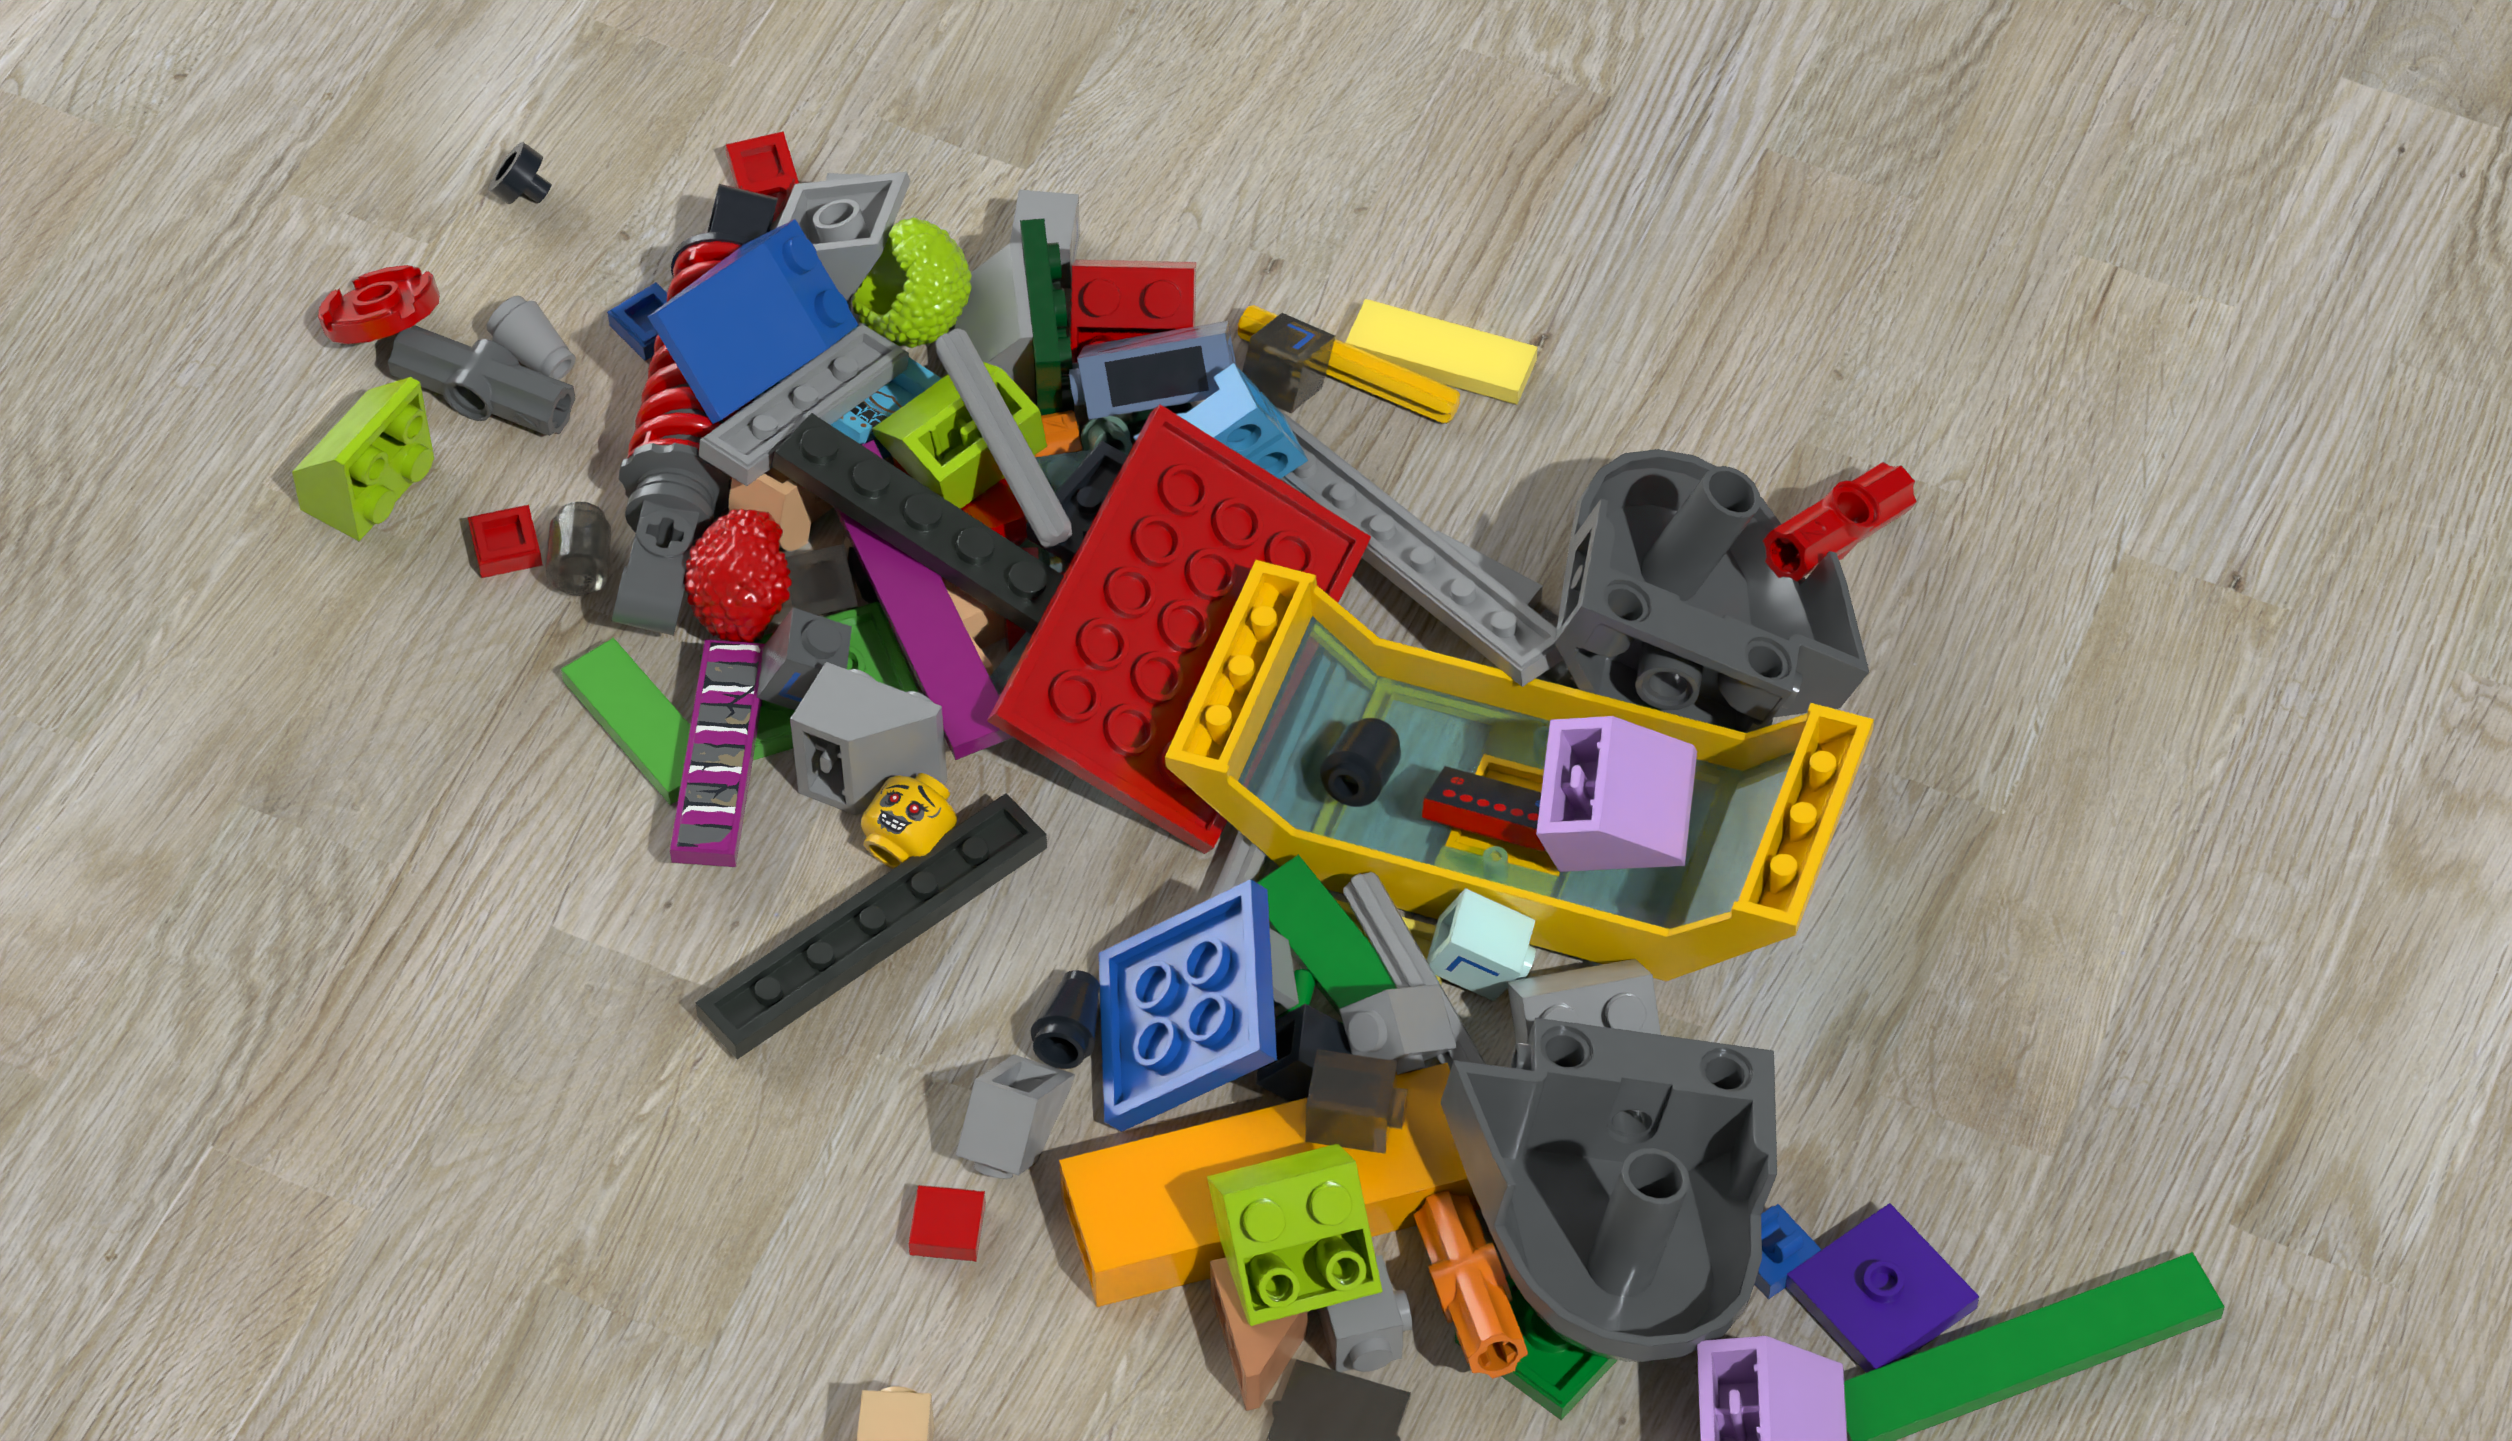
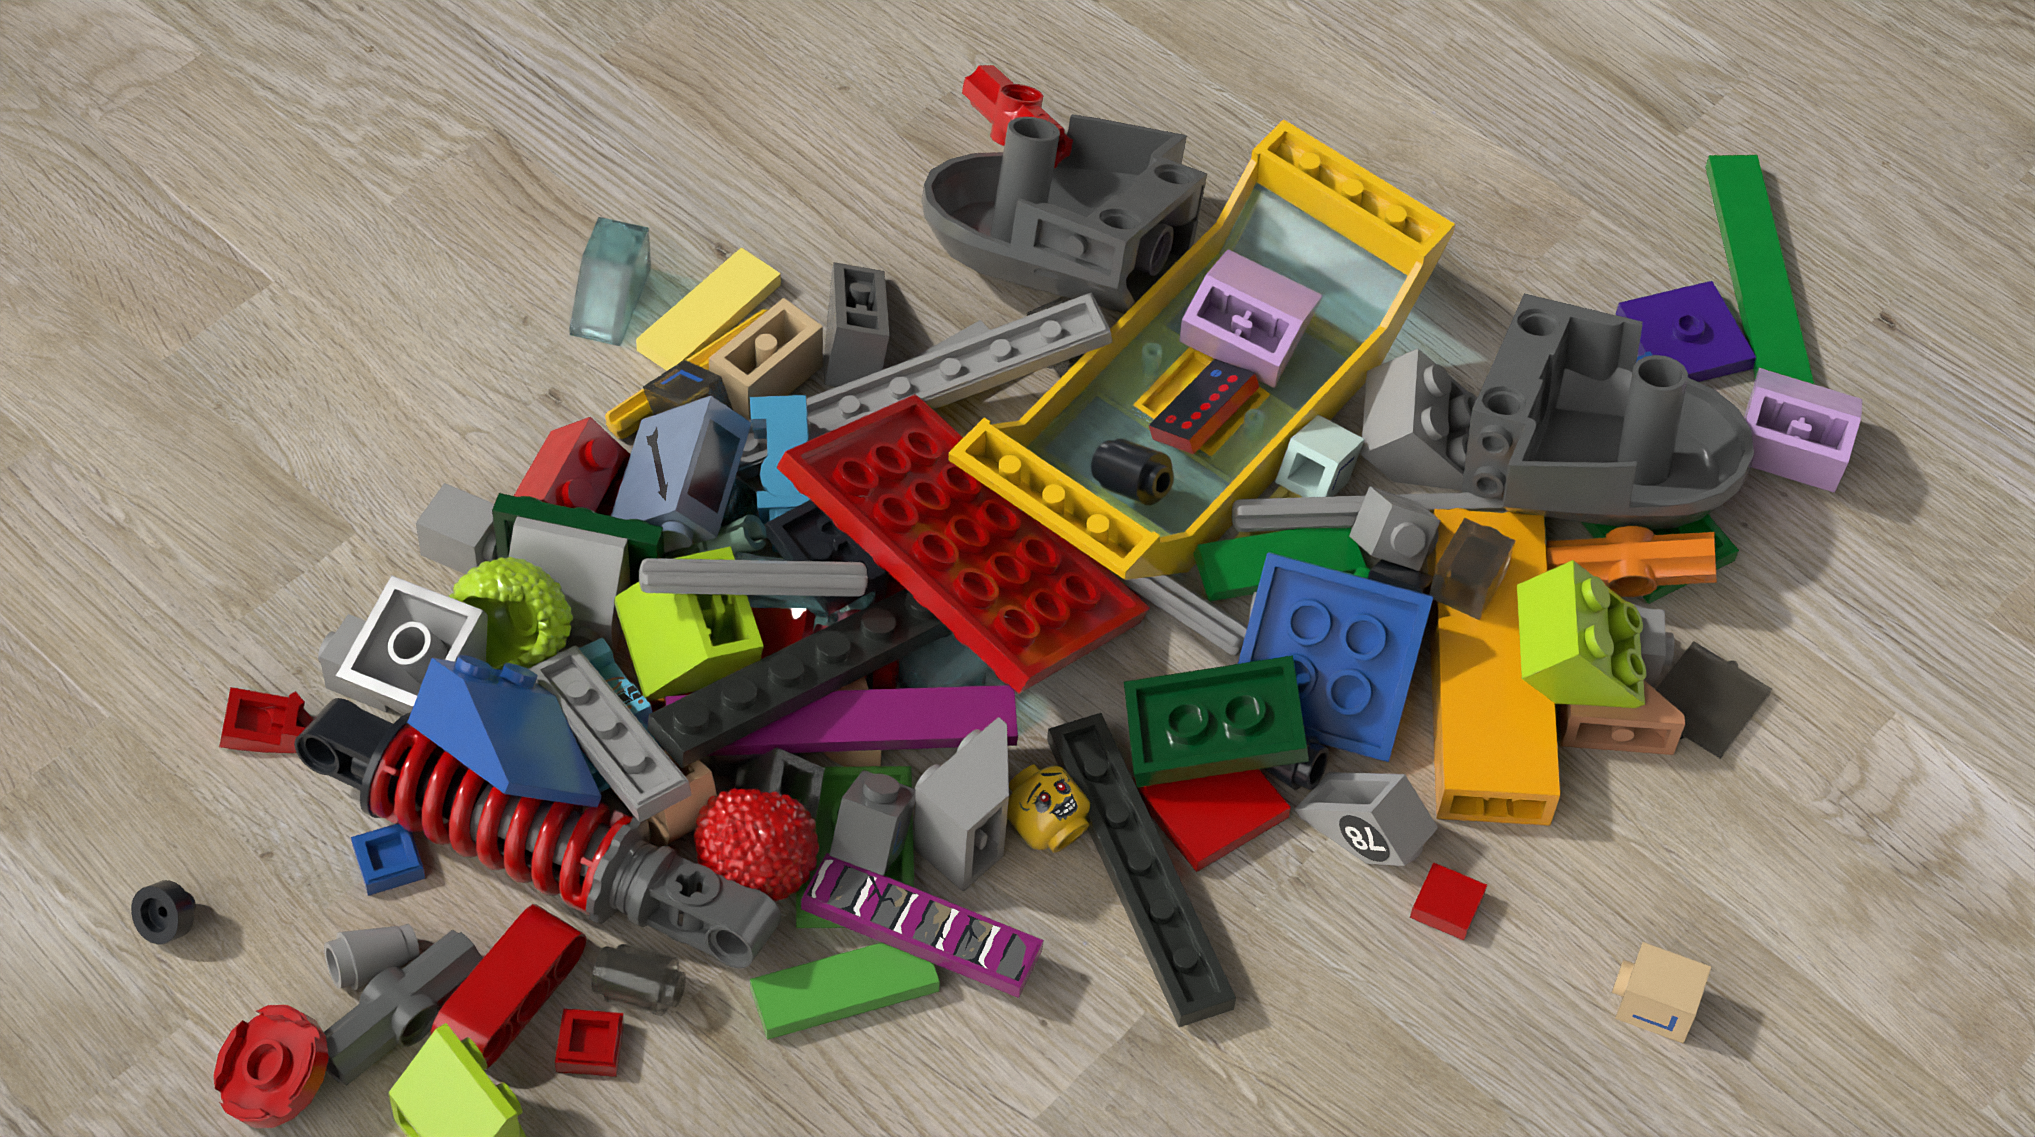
camera: 75 degrees left, 0 degrees up
(533, 453) = (512, 981): none -> red beam
(990, 970) = (1214, 813): none -> red tile
(1060, 926) = (1215, 721): none -> dark green plate
(1370, 406) = (769, 356): none -> tan brick
(1428, 250) = (610, 281): none -> clear light blue slope
(1473, 473) = (855, 324): none -> dark grey slope

